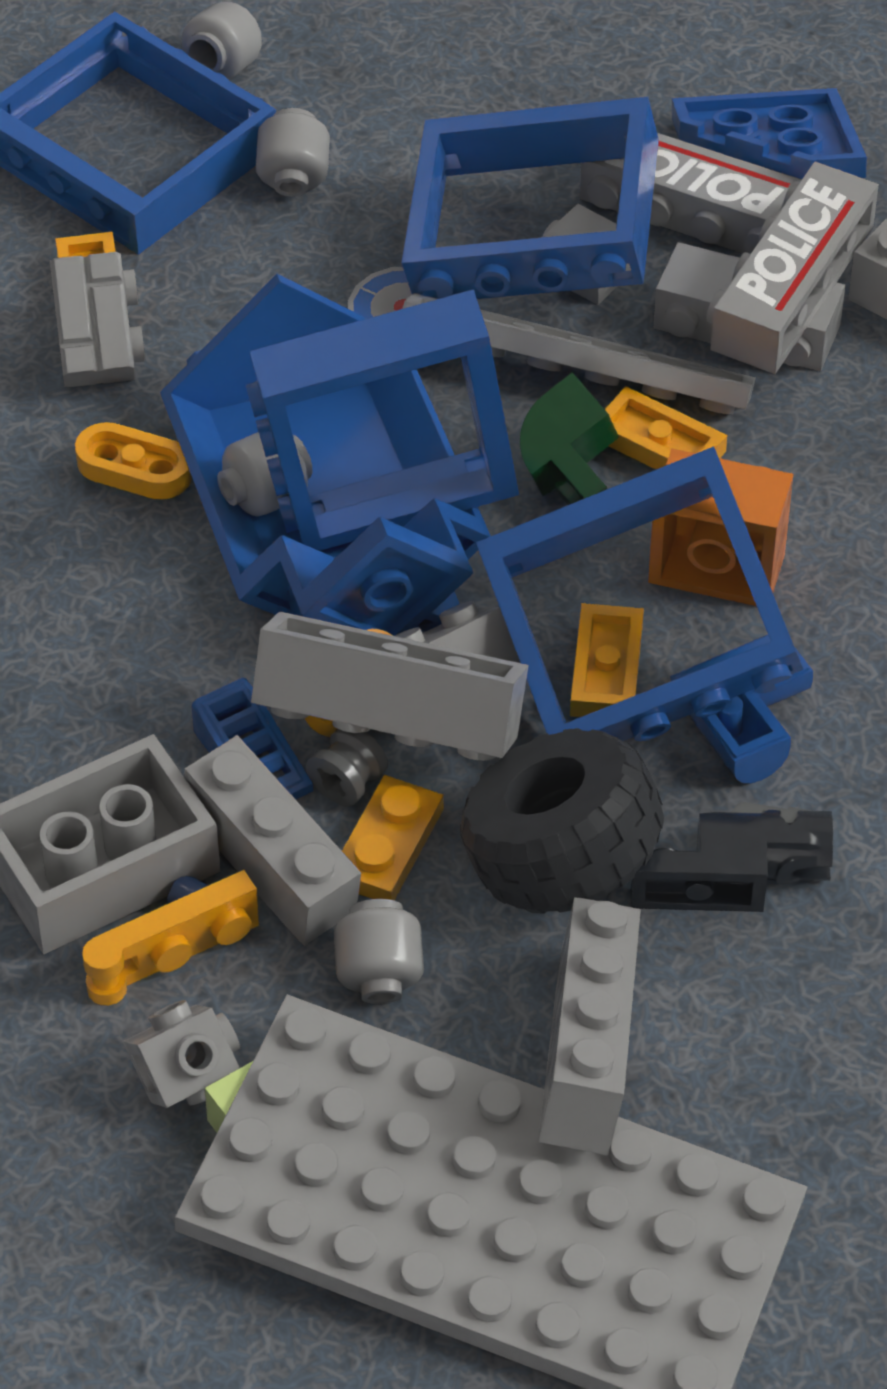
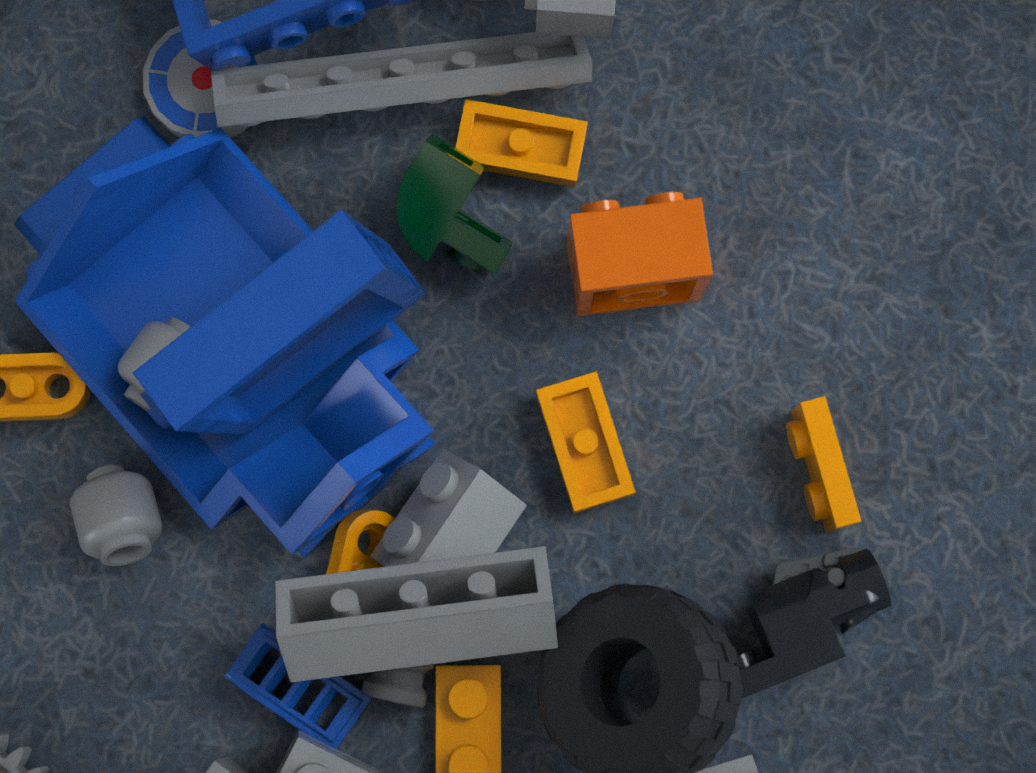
camera: 25 degrees left, 30 degrees up
(161, 568) = (116, 516): none -> light grey head
(607, 516) = (551, 333): blue window -> none
(747, 731) = (714, 442): blue brick -> none
(820, 726) = (830, 491): none -> light orange plate

